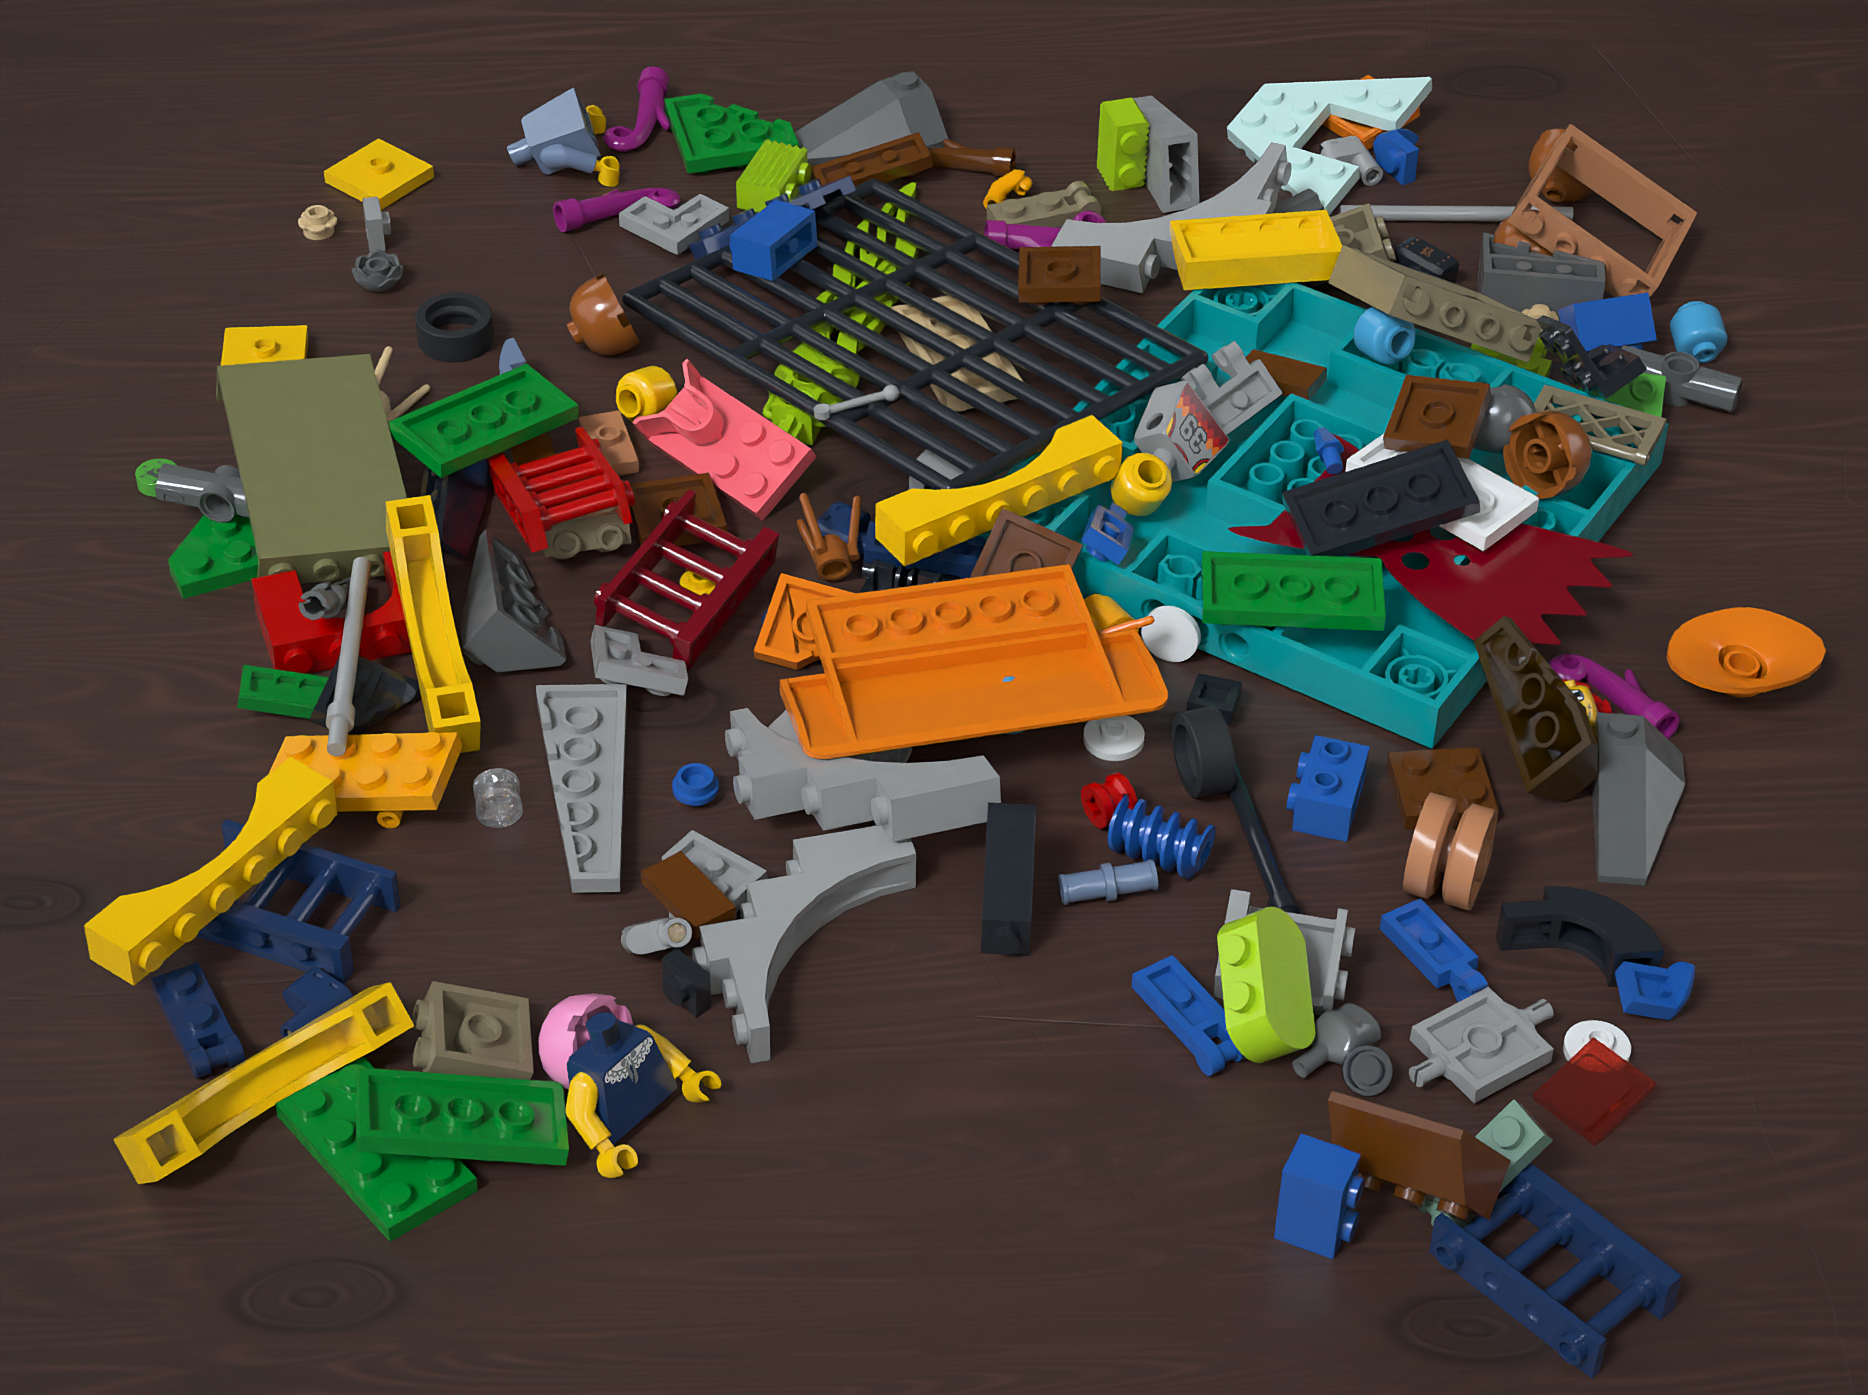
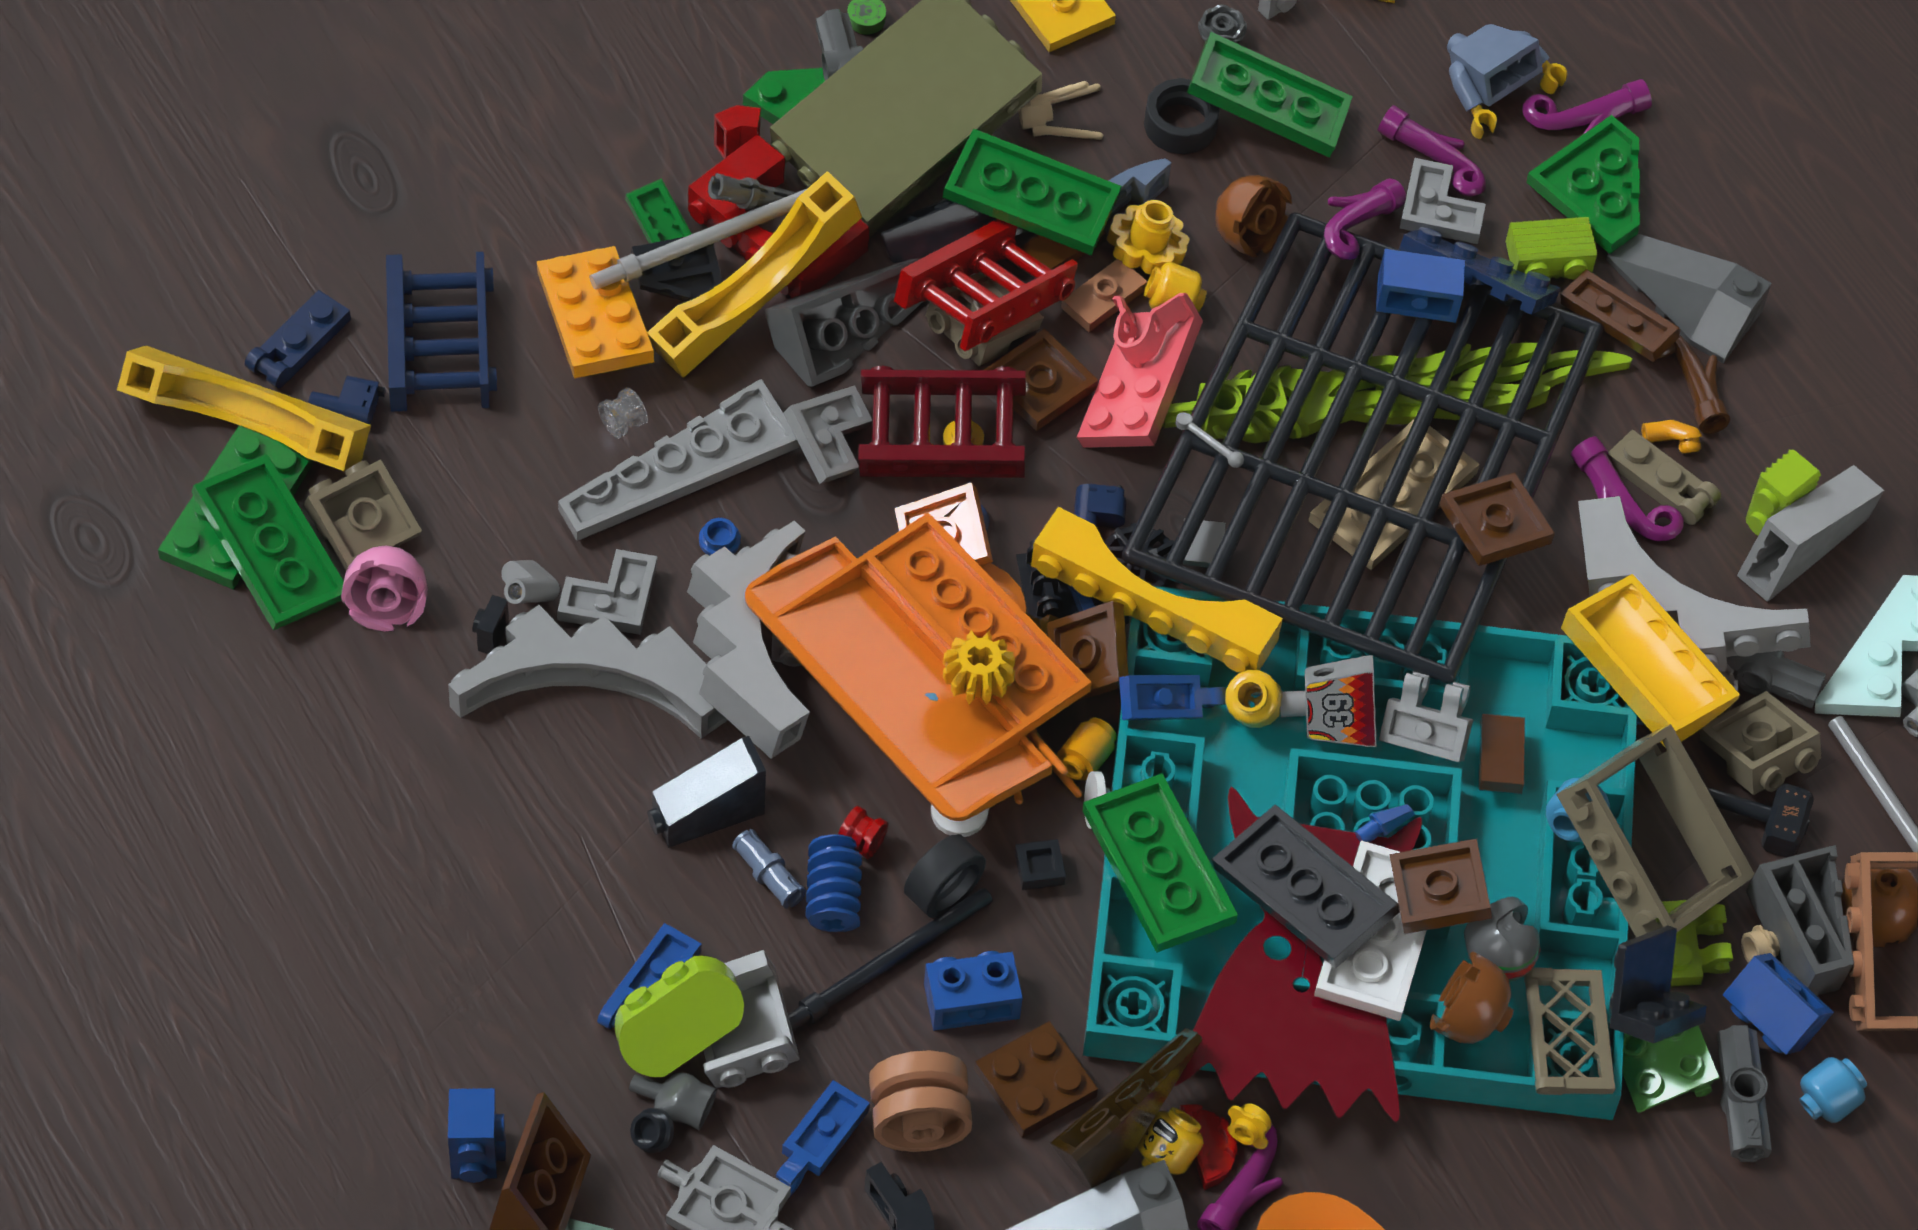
camera: 60 degrees right, 15 degrees up
(149, 926) = (491, 282): yellow arch -> none
(230, 598) = (735, 127): none -> red piece
(485, 261) = (1270, 94): none -> green plate
(585, 385) = (1148, 236): none -> yellow plant
(619, 1081) = (358, 625): torso -> none
(647, 248) = (1382, 199): none -> magenta plant
(687, 892) = (576, 583): reddish brown tile -> none
(829, 552) = (1043, 506): dark orange plant -> none
(1019, 616) = (978, 667): none -> yellow gear
(1579, 654) = (1249, 1125): none -> yellow plate

